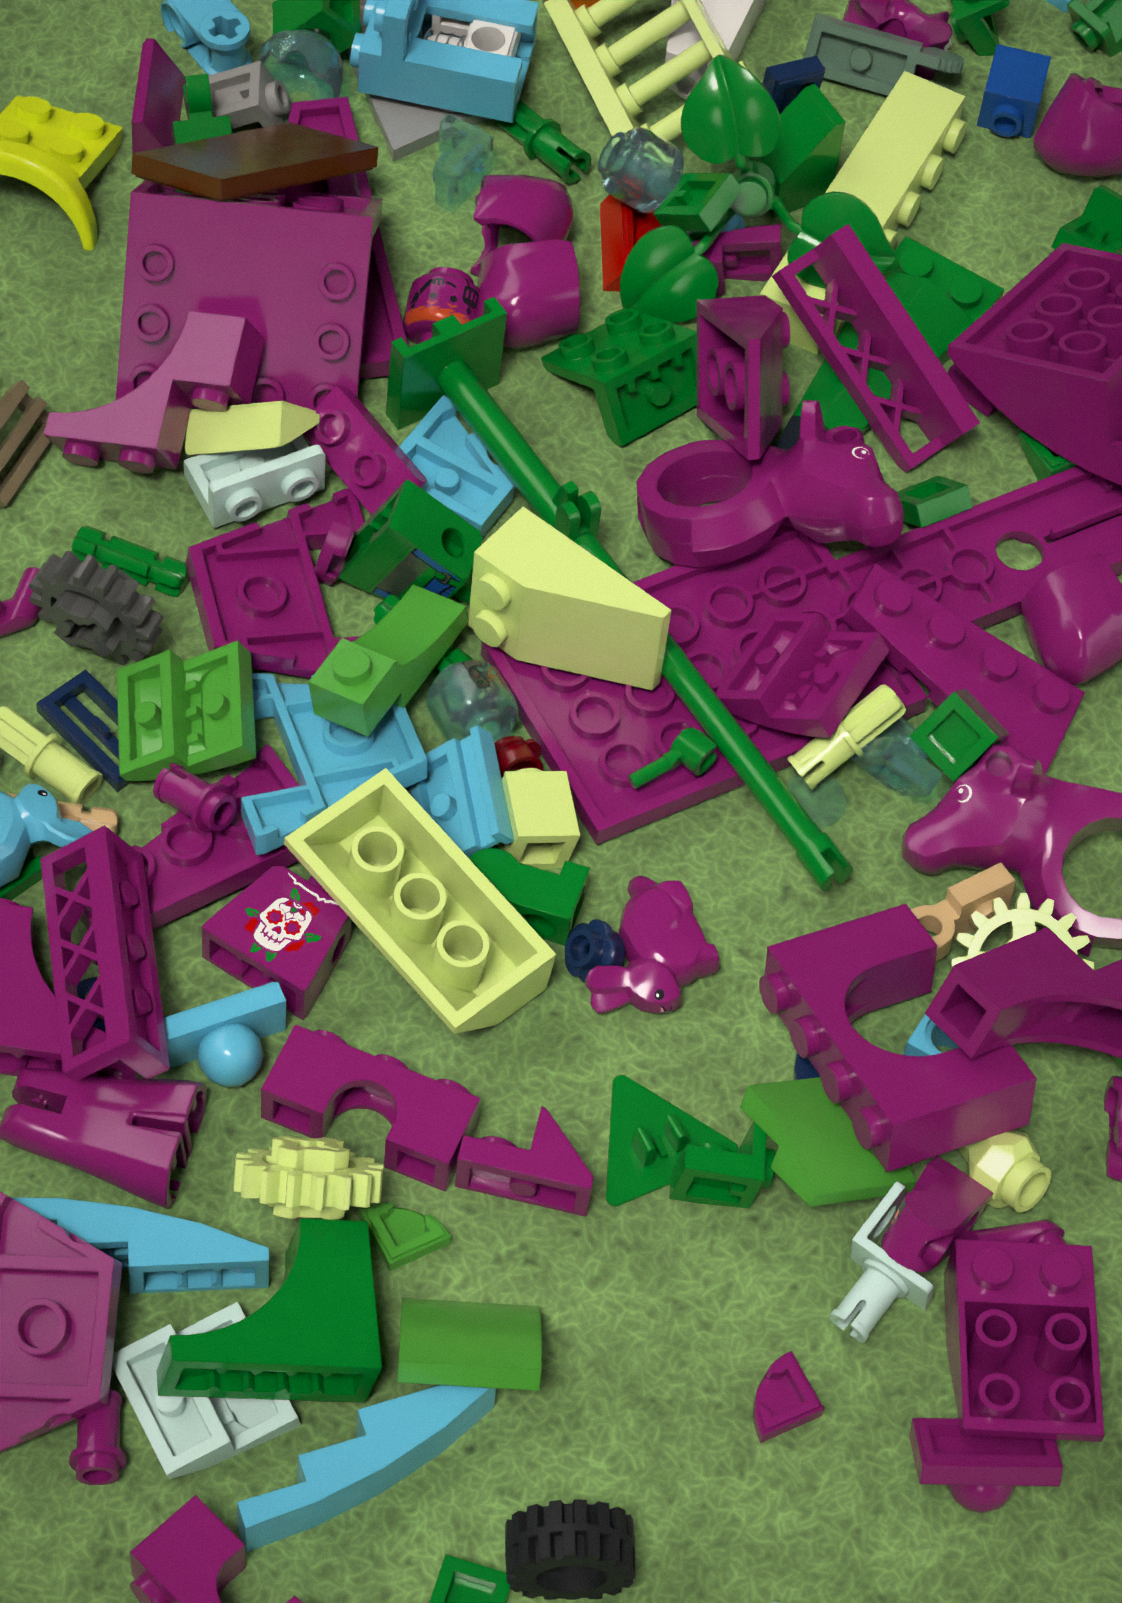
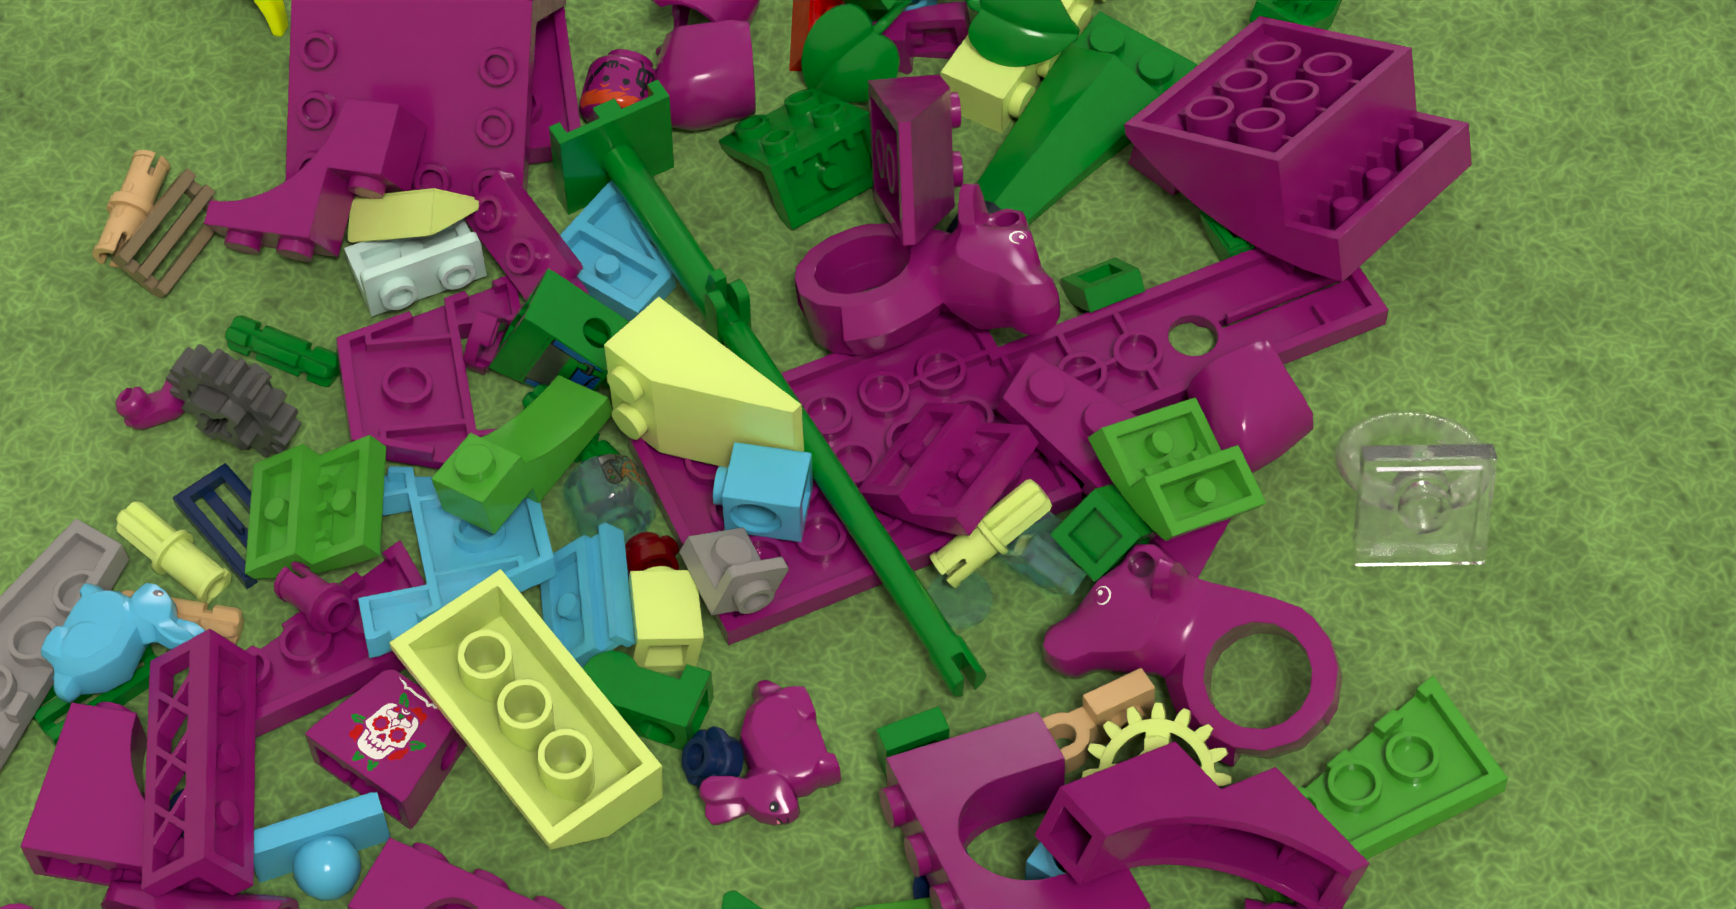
camera: 10 degrees right, 0 degrees up
(602, 774) = (731, 571): none -> light grey bracket
(627, 696) = (765, 491): none -> medium azure brick
(689, 748) = (824, 545): green hand -> none
(783, 926) = (910, 734): none -> green tile
(890, 337) = (1066, 114): magenta fence -> none
(1020, 677) = (1176, 470): none -> bright green slope

